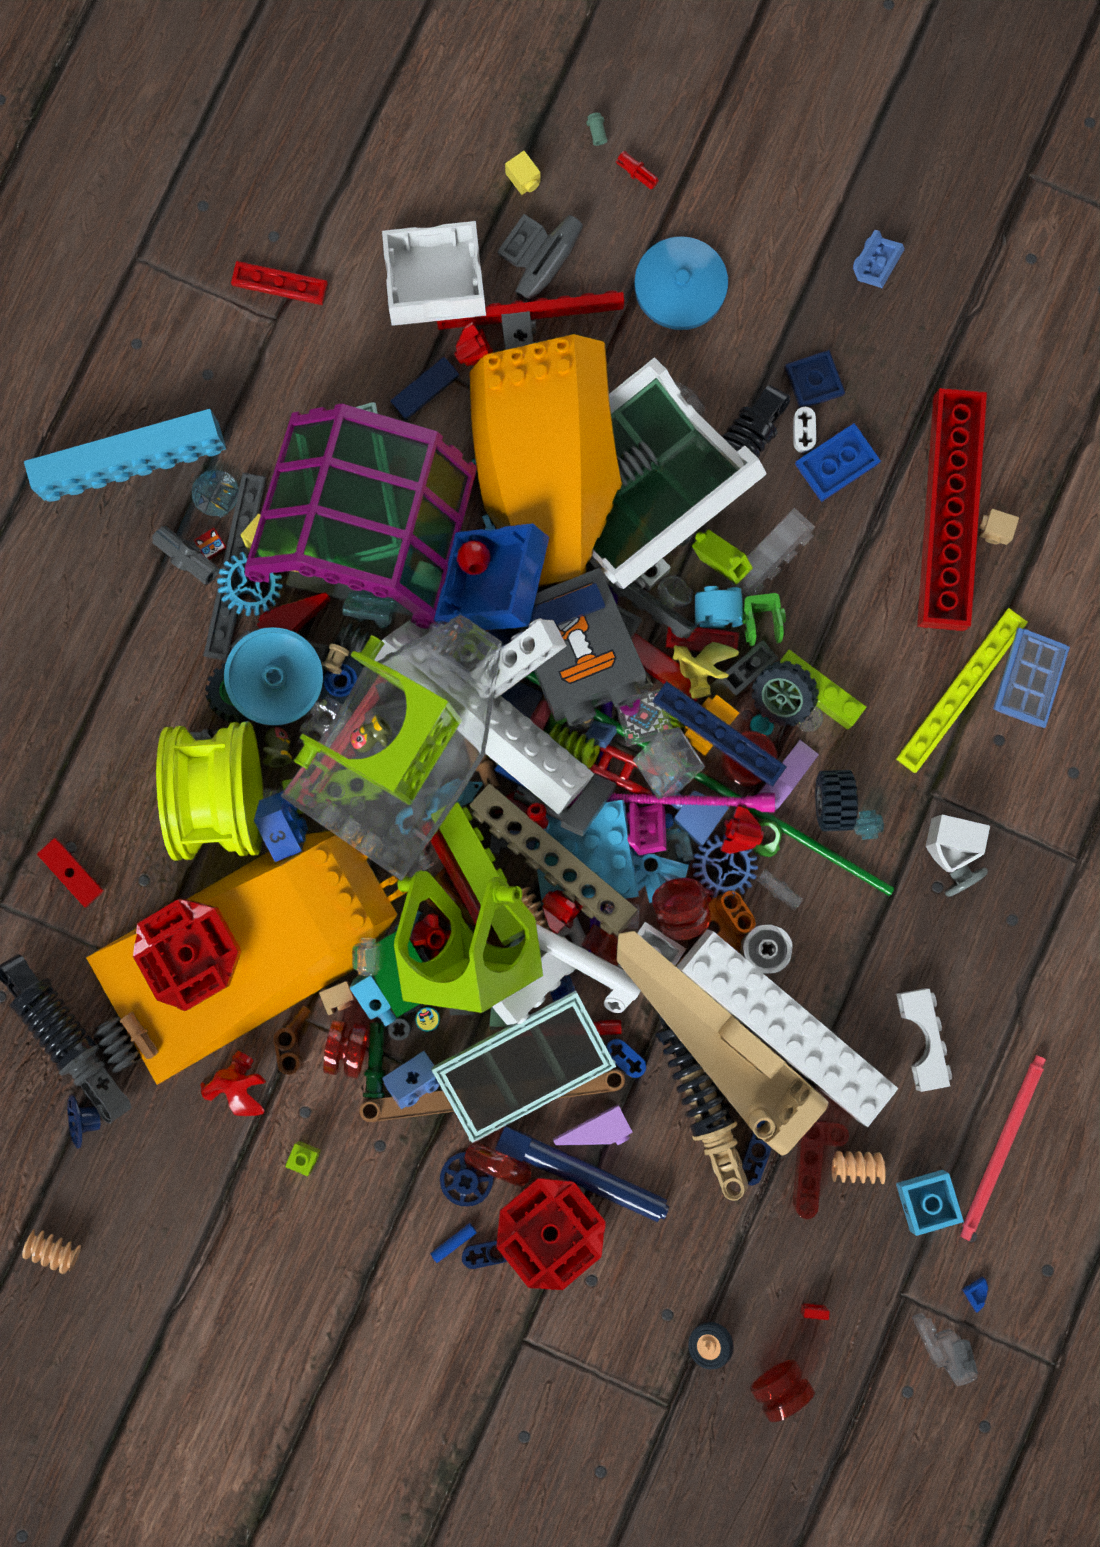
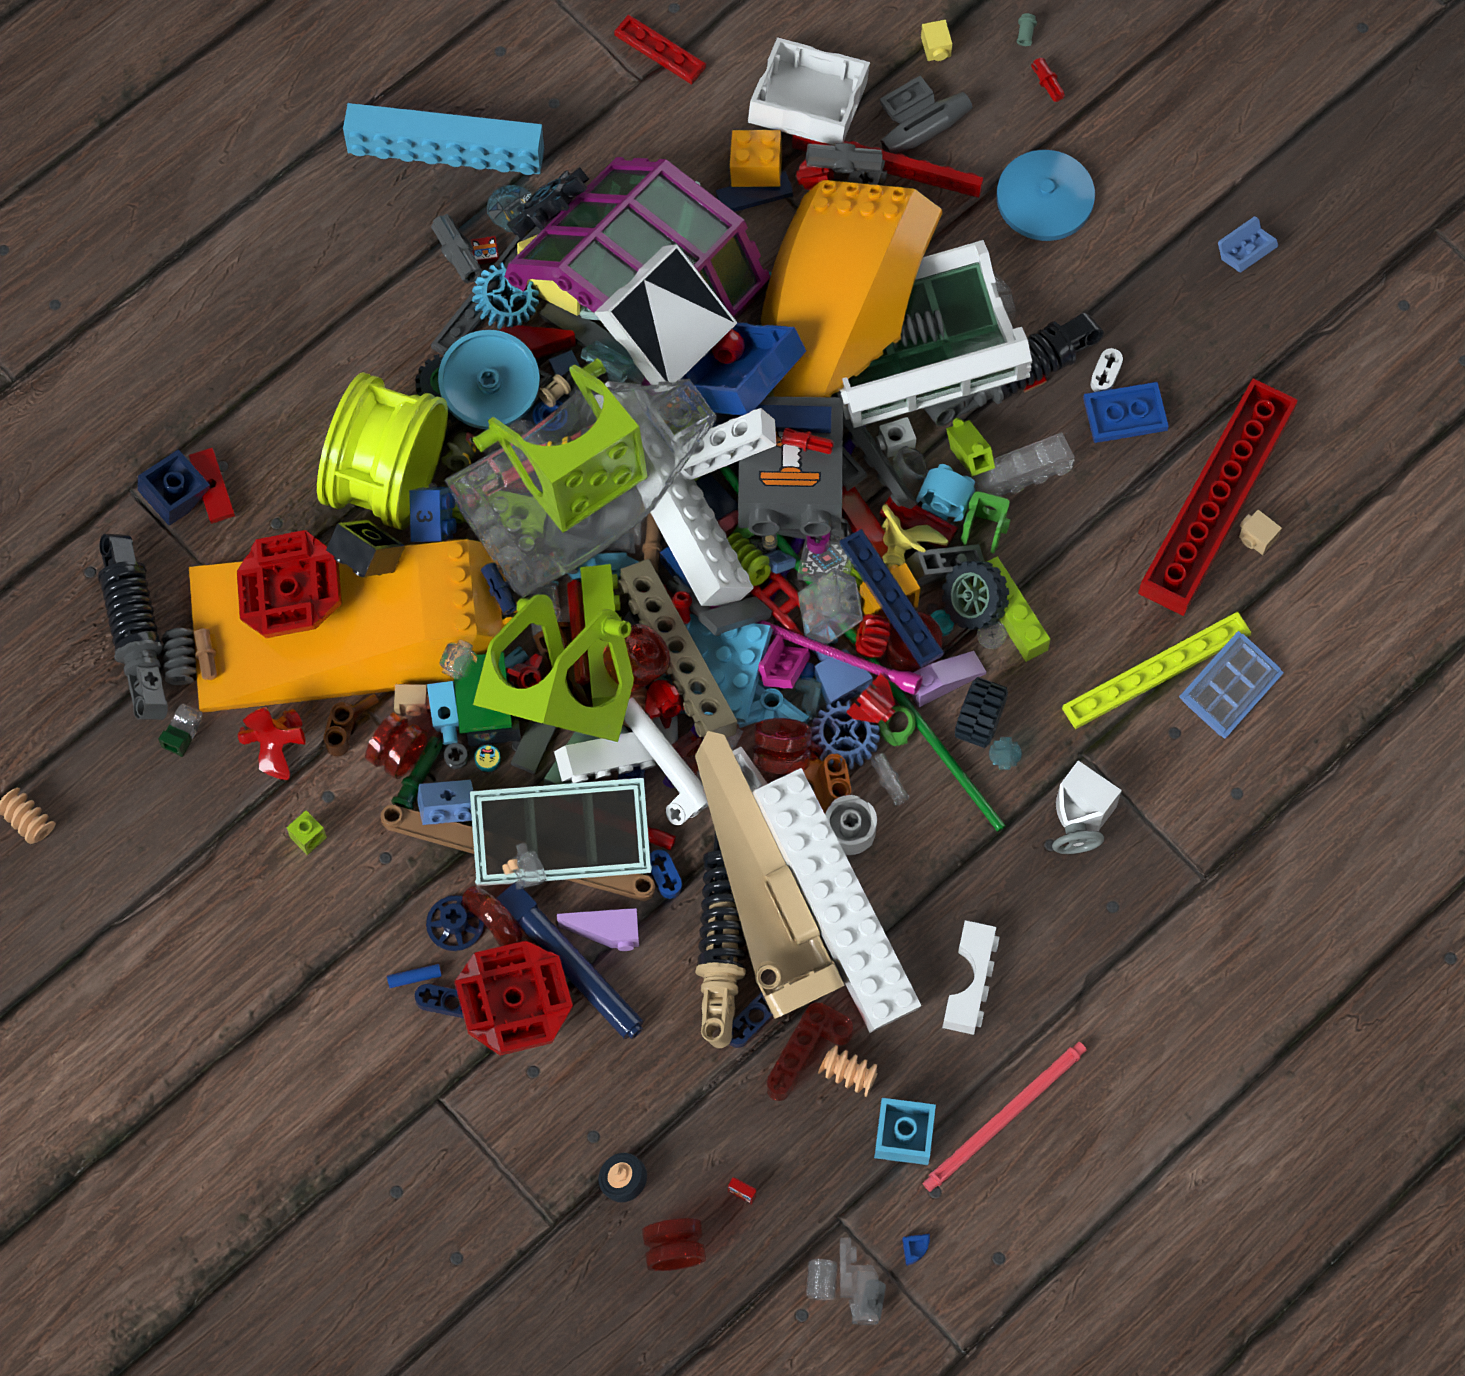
camera: 25 degrees right, 15 degrees down
(37, 891) = (172, 487): none -> dark blue slope
(85, 1120) = (116, 710): dark blue wheel -> none
(150, 1110) = (181, 730): none -> leg
(239, 893) = (365, 548): none -> brick
(250, 483) = (548, 202): none -> black gear
(331, 625) = (561, 363): none -> medium blue tile
(373, 873) = (499, 588): none -> dark blue pin
(413, 356) = (756, 158): none -> light orange brick
(413, 562) = (666, 316): none -> white tile
(494, 326) = (844, 158): none -> dark grey piece
(510, 1117) = (526, 867): none -> clear piece
(535, 881) = (647, 656): none -> clear red wheel
(589, 626) = (807, 441): none -> red axle
(716, 773) = (872, 636): none -> red gear
(814, 379) = (1138, 330): dark blue tile -> none
(914, 1359) = (821, 1279): none -> clear piece

